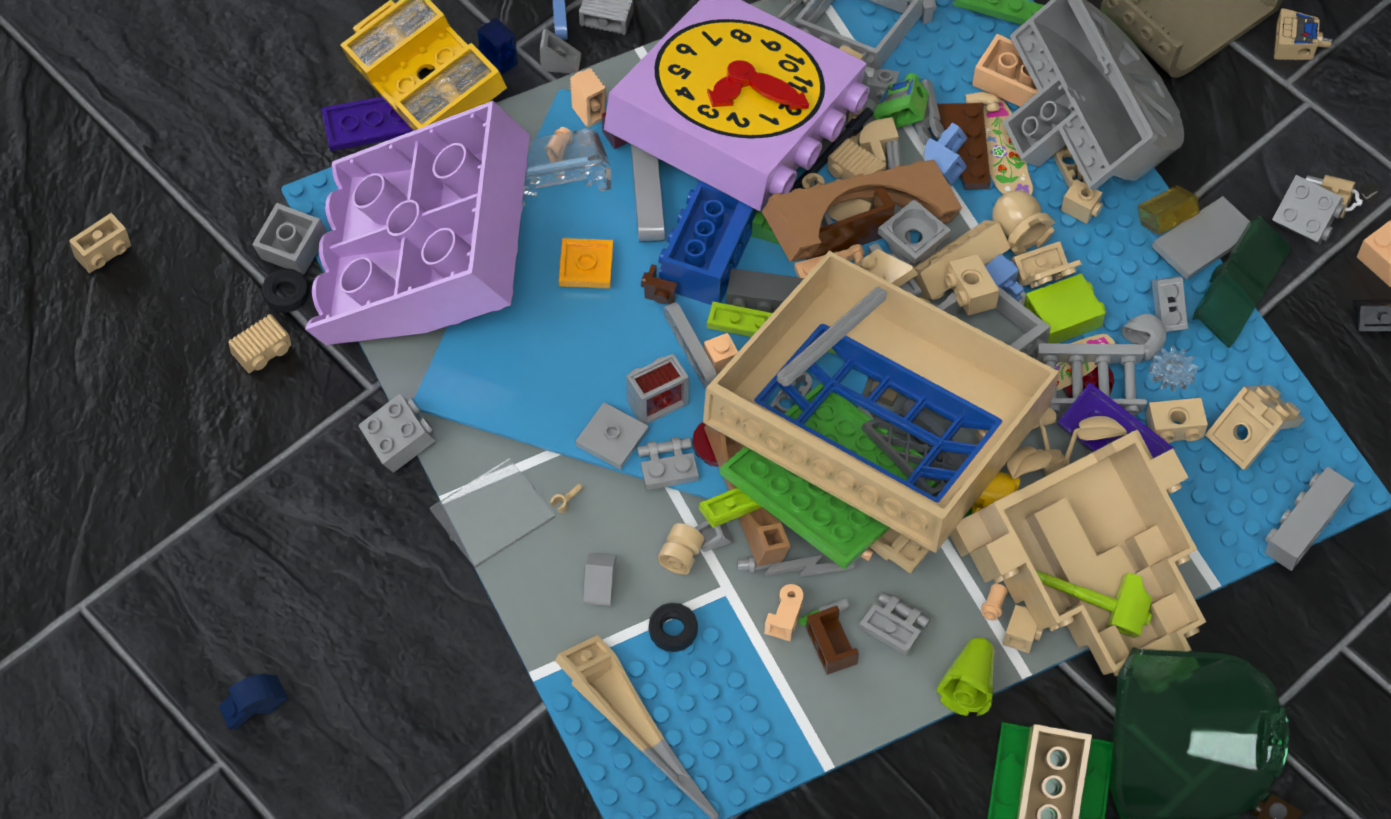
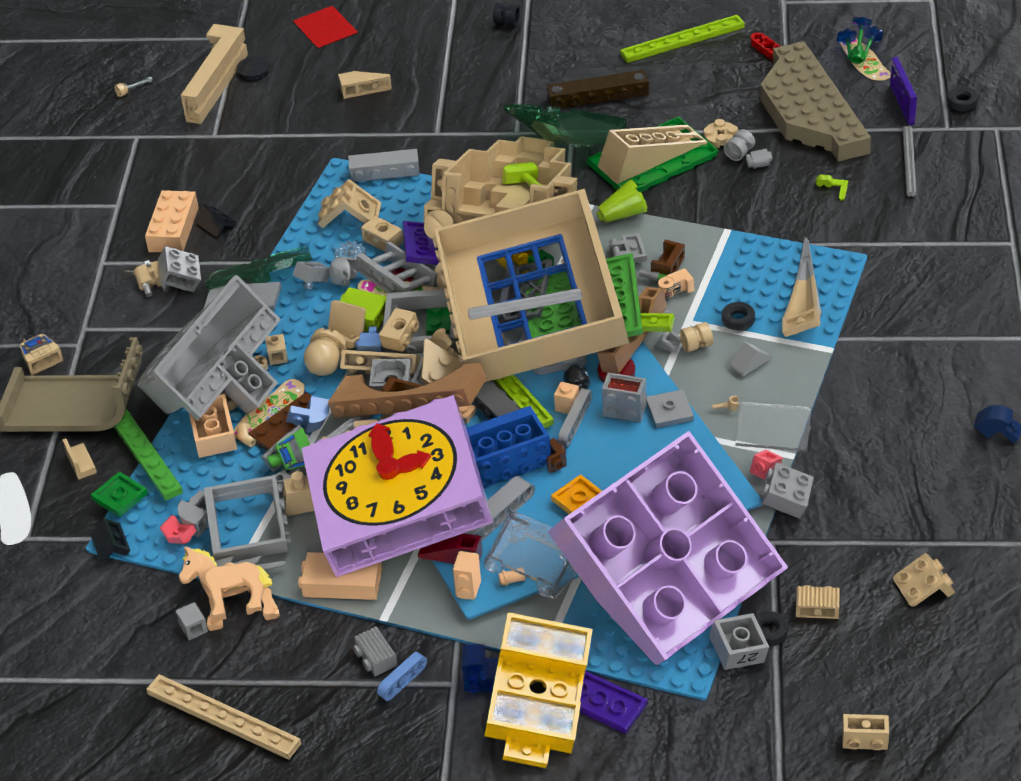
camera: 130 degrees left, 15 degrees down
(173, 446) = (923, 579): none -> tan bracket
(451, 451) = (763, 461): none -> coral bracket
(557, 54) = (441, 648): light grey slope -> none
(669, 470) = (658, 376): light grey plate -> none

